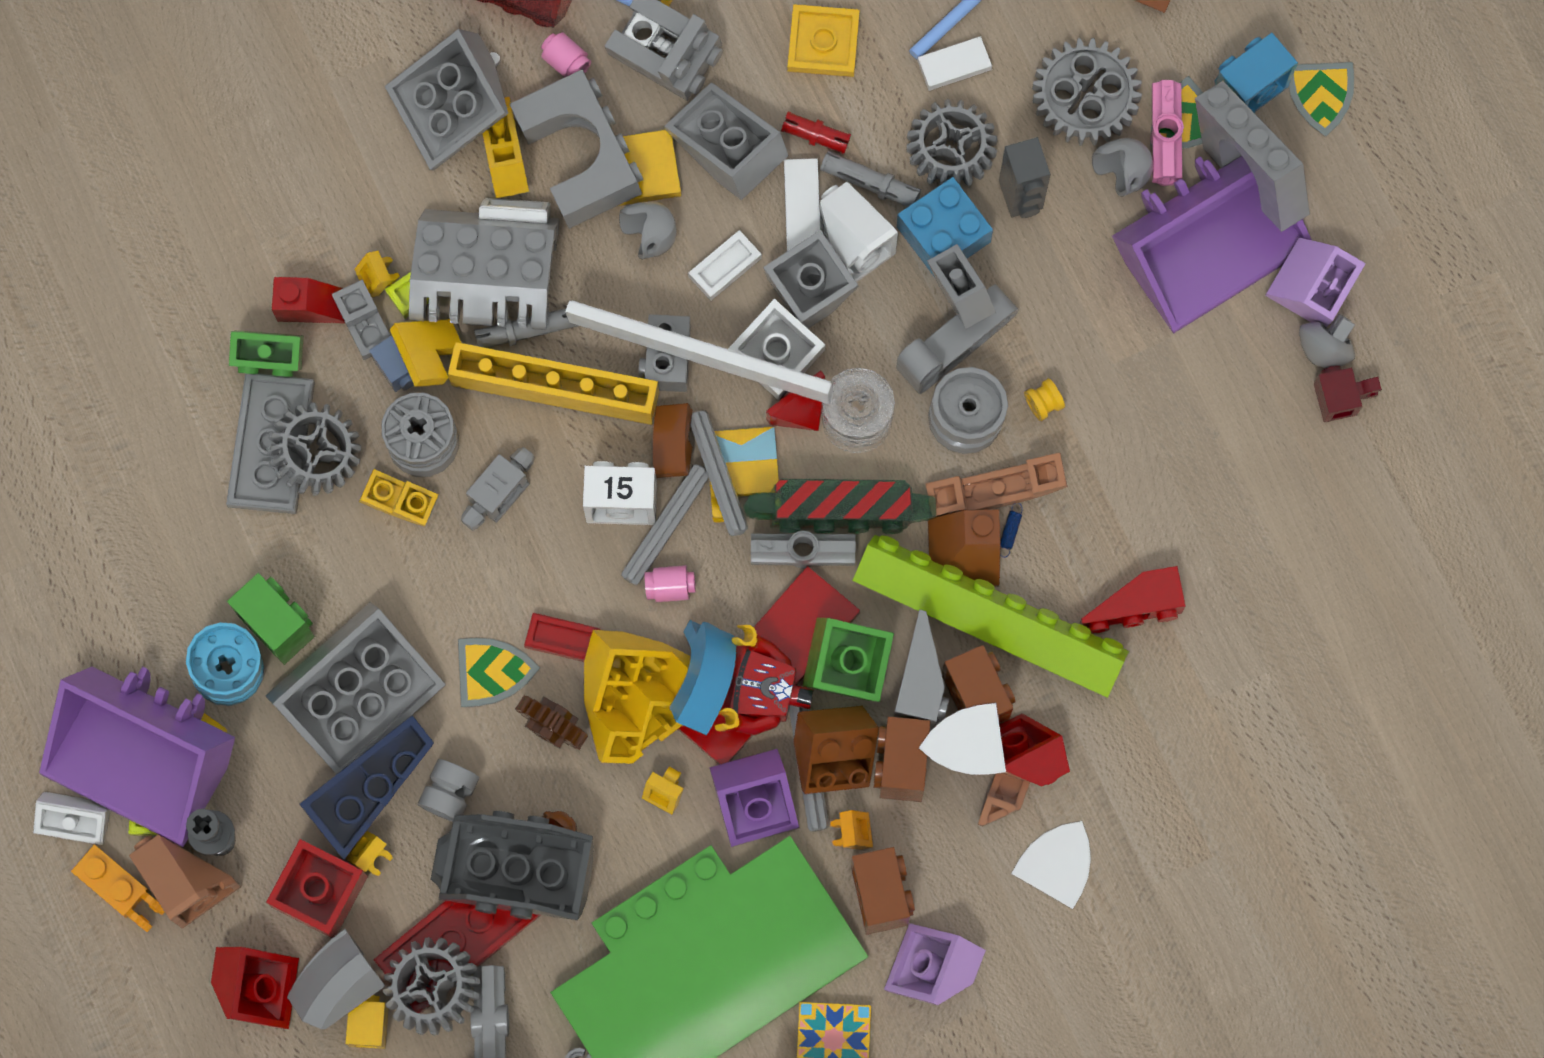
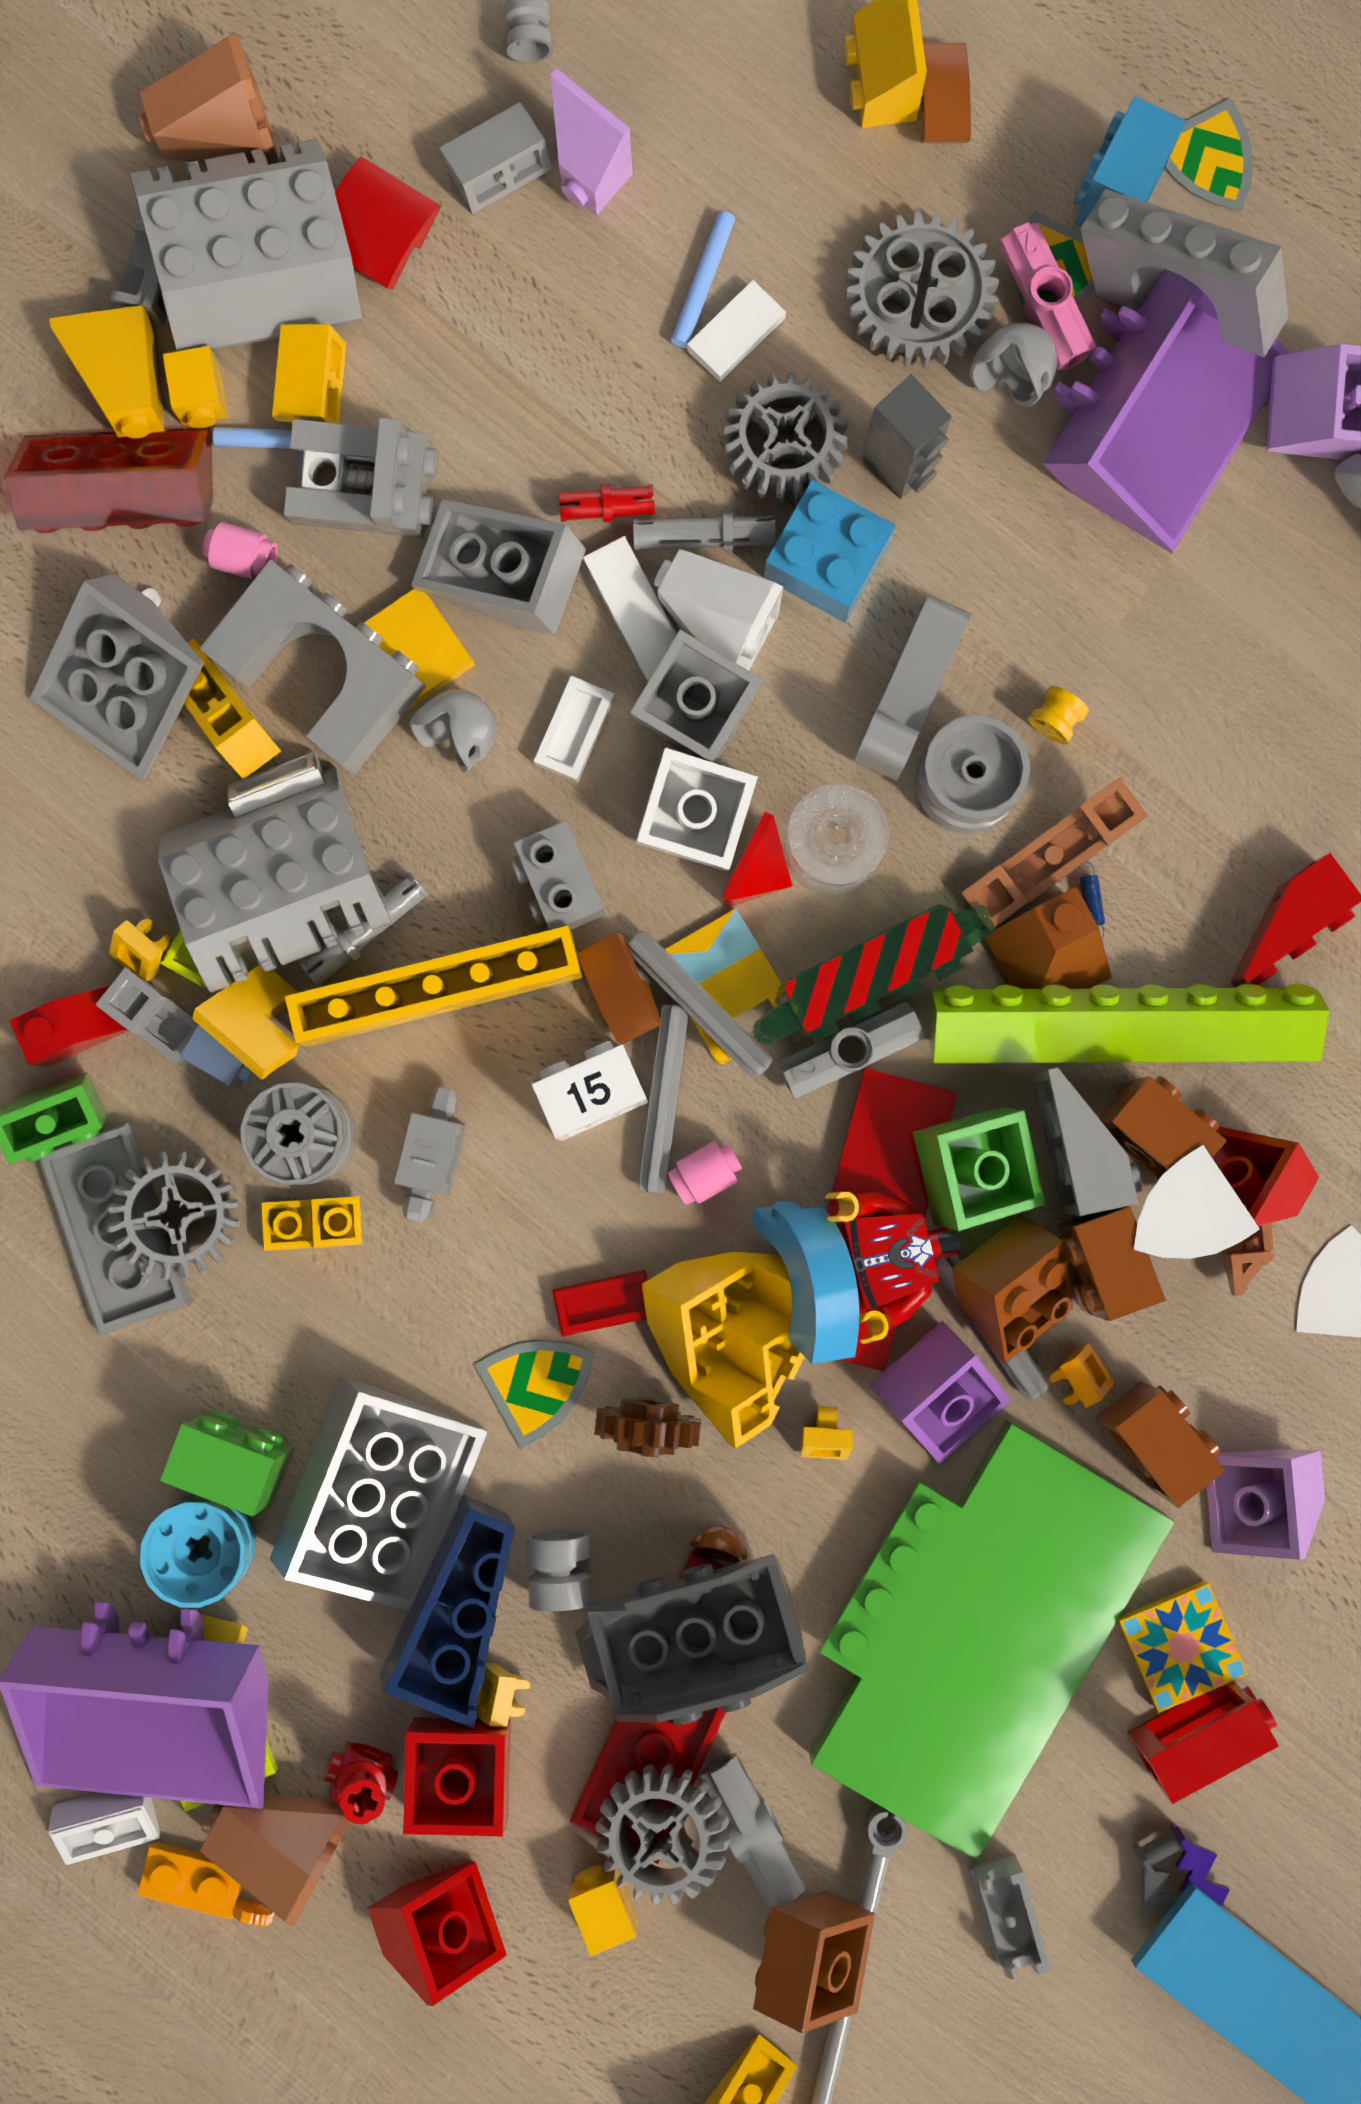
camera: 20 degrees left, 10 degrees up
(210, 832) = (288, 1782): dark grey piece -> none
(253, 863) = (360, 1781): none -> red connector
(334, 983) = (539, 1885): light grey slope -> none
(699, 352) = (605, 864): white tile -> none
(823, 40) = (556, 378): yellow tile -> none
(961, 286) = (895, 619): light grey brick -> none

